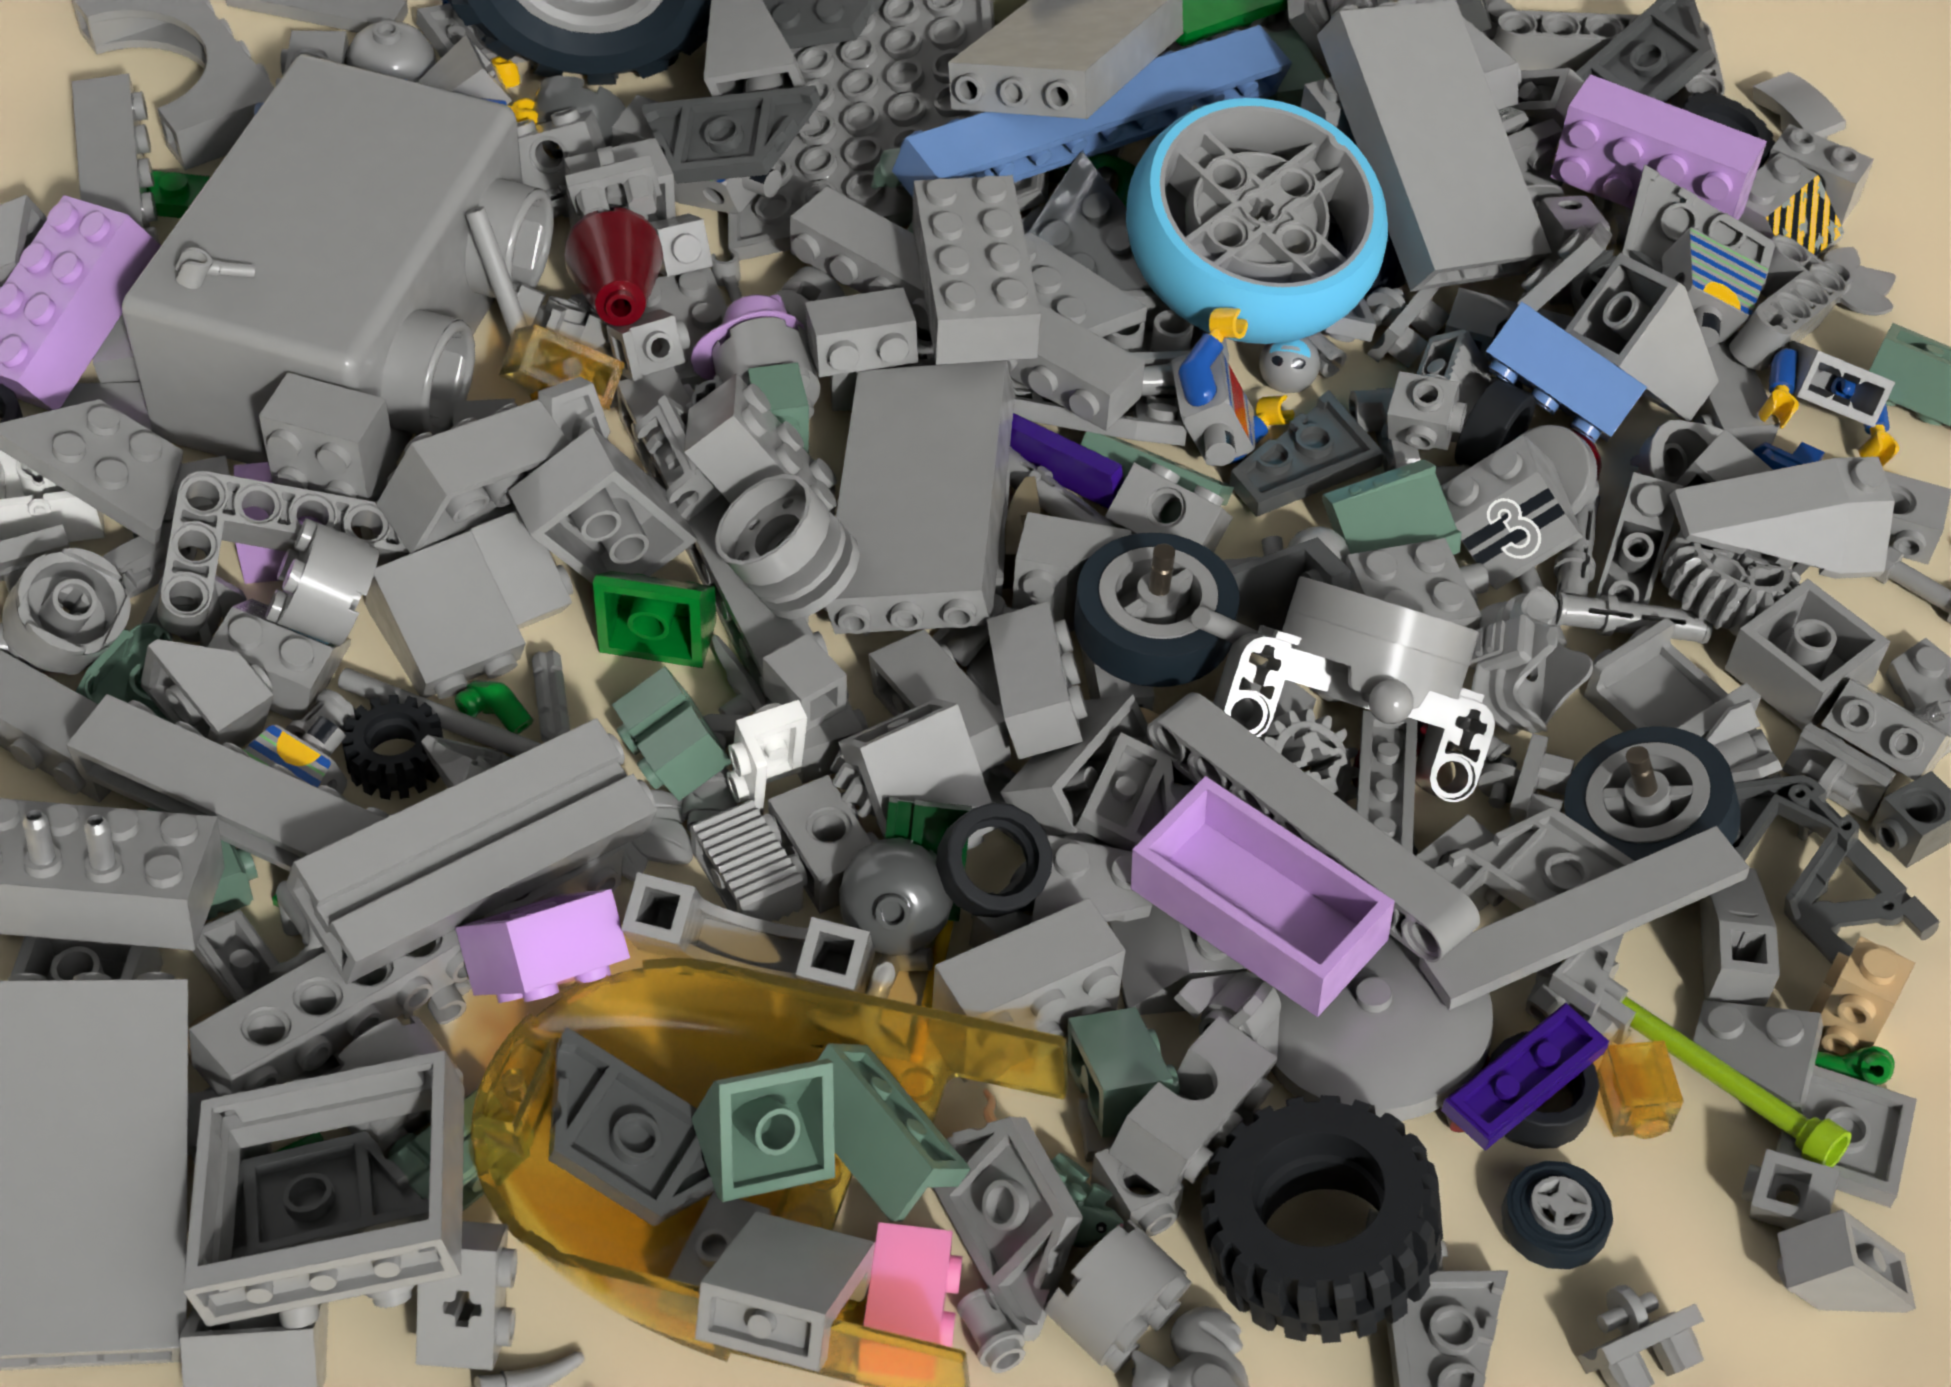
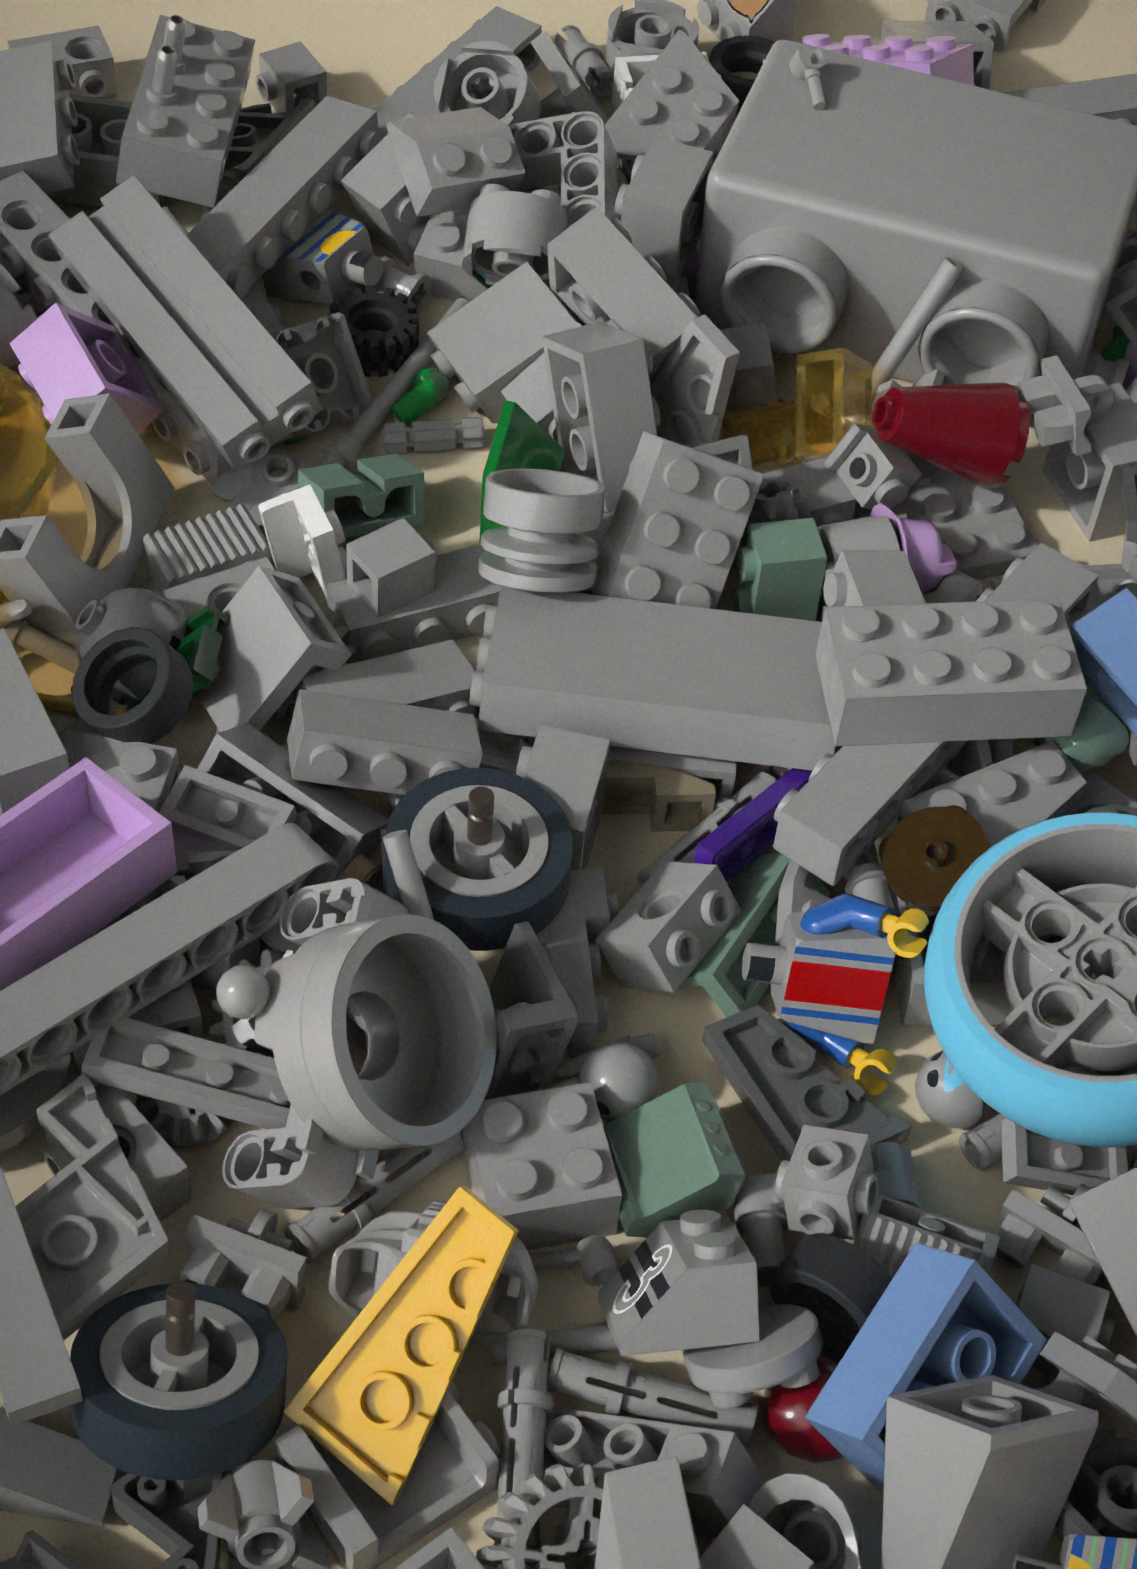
camera: 90 degrees right, 0 degrees up
(233, 603) = (452, 156): none -> light grey slope
(683, 244) = (1056, 514): light grey brick -> none
(1130, 316) = (930, 854): none -> dark brown piece
(1603, 646) = (397, 1358): none -> yellow wing

